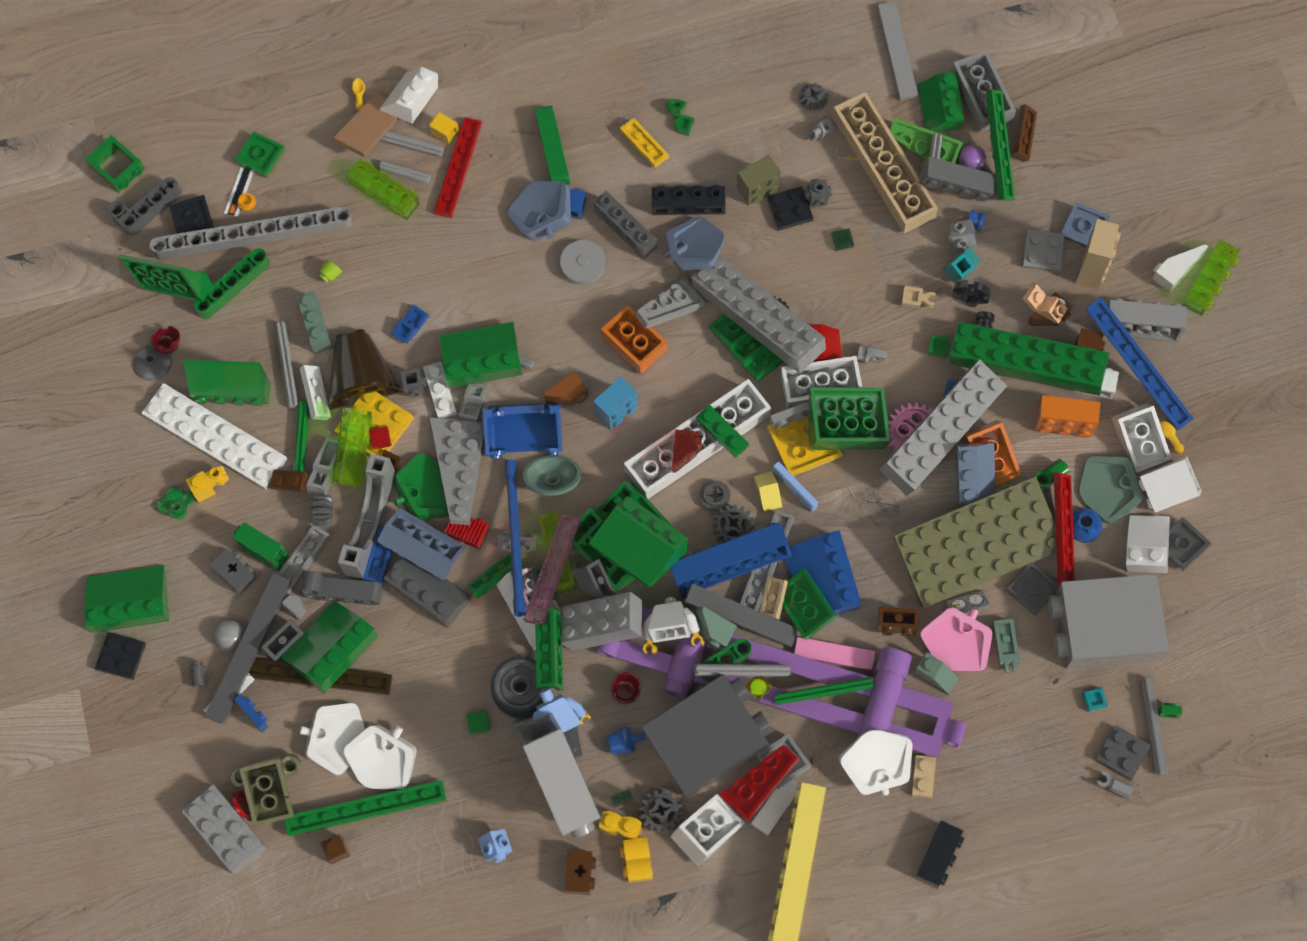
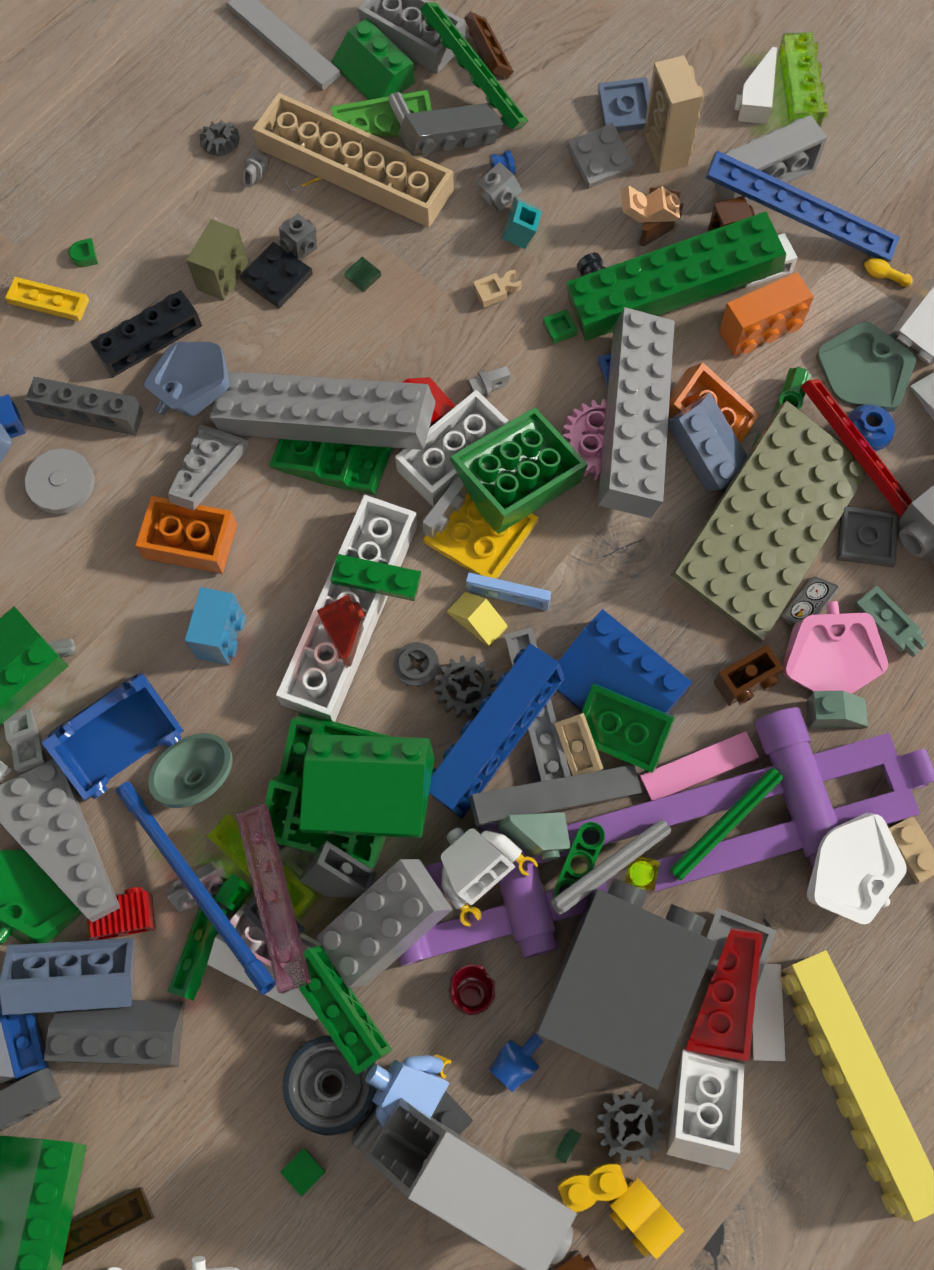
camera: 35 degrees left, 0 degrees up
(533, 556) = (233, 893): none -> green plate
(567, 391) = (142, 650): dark orange slope -> none
(675, 107) = (59, 237): green tile -> none
(971, 293) = (558, 243): black plate -> none
(972, 157) = (448, 97): medium lavender hair -> none
(1142, 437) = (858, 288): white slope -> none

